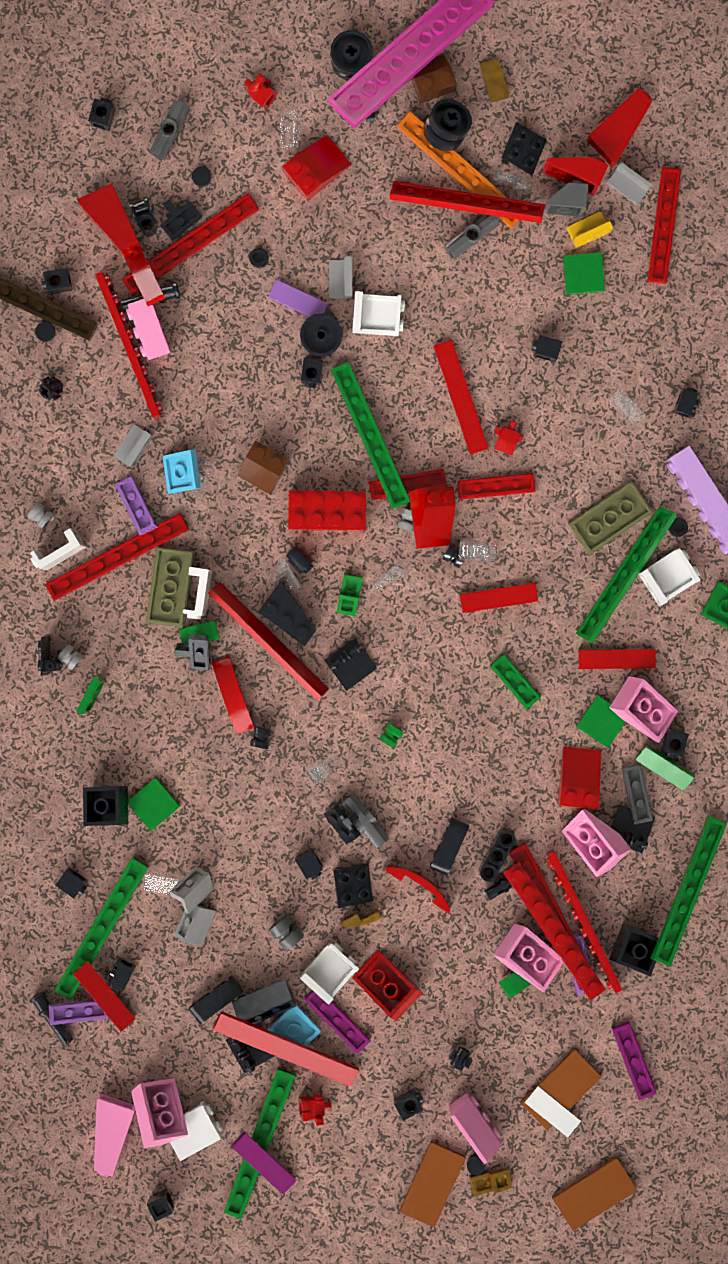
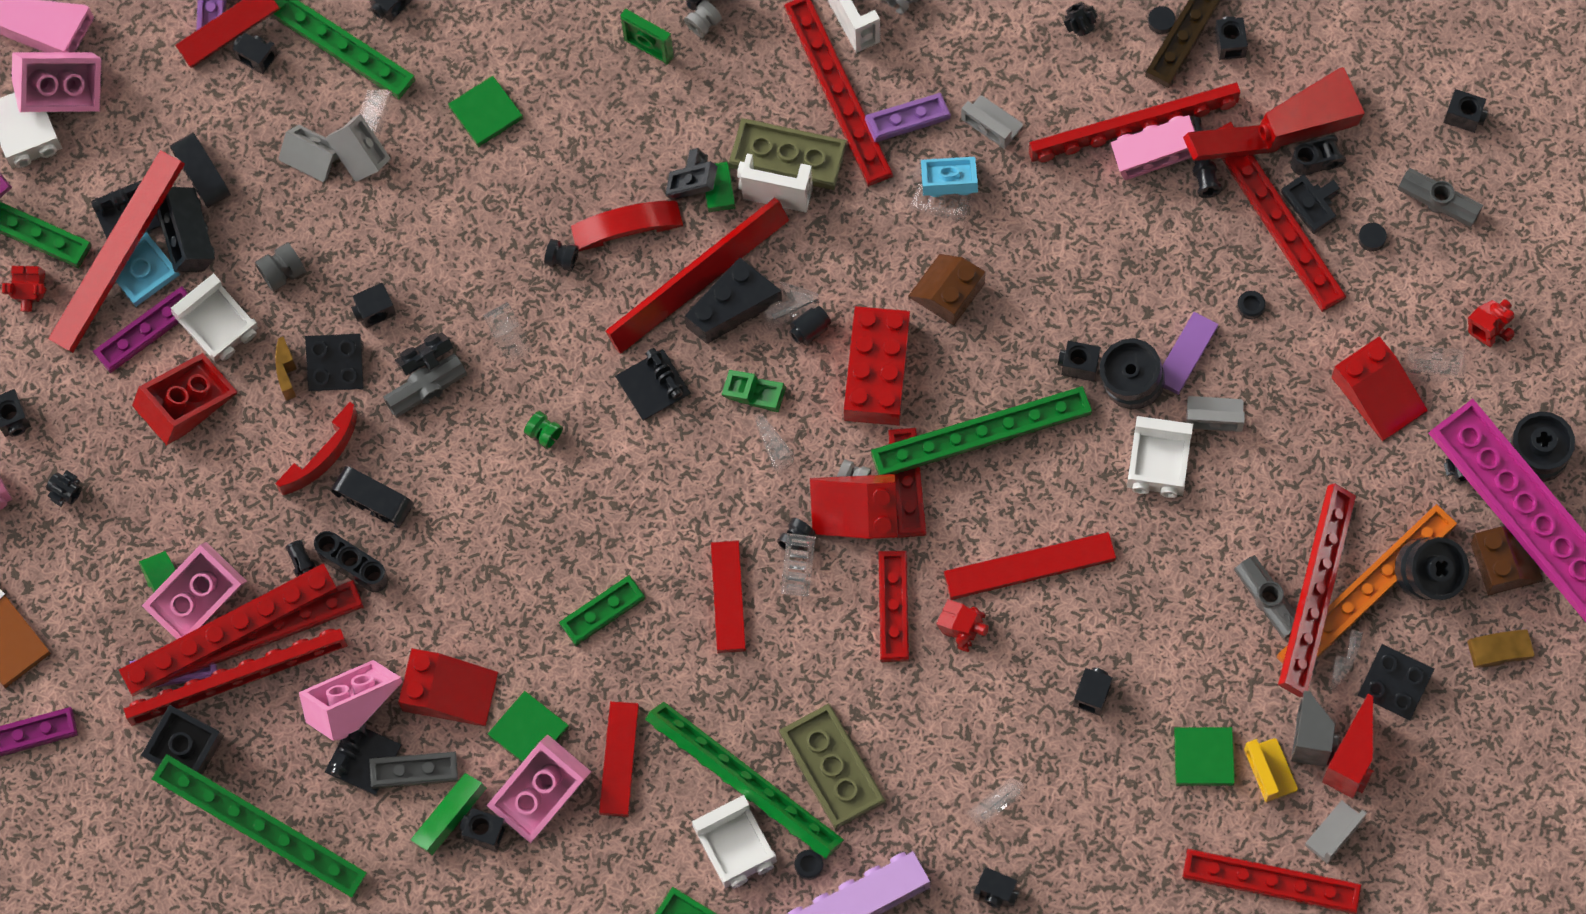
camera: 100 degrees right, 20 degrees down
(105, 806) = (490, 45): black brick -> none
(618, 128) = (1424, 824): red slope -> none

